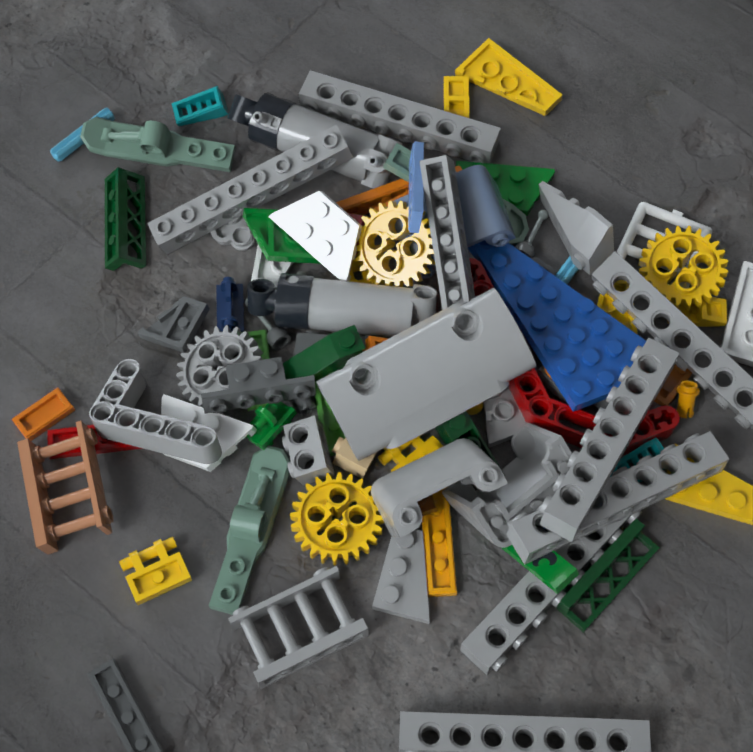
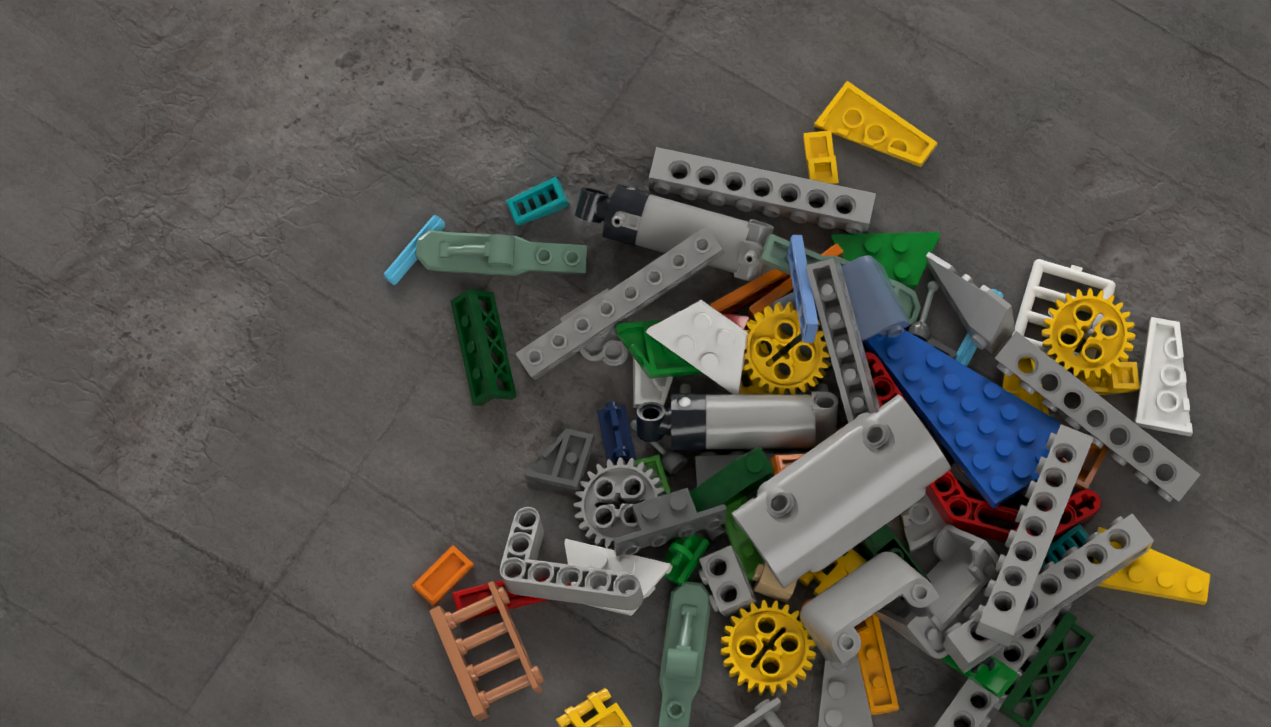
camera: 10 degrees left, 5 degrees up
(686, 400) = (1106, 474): light orange pin -> none

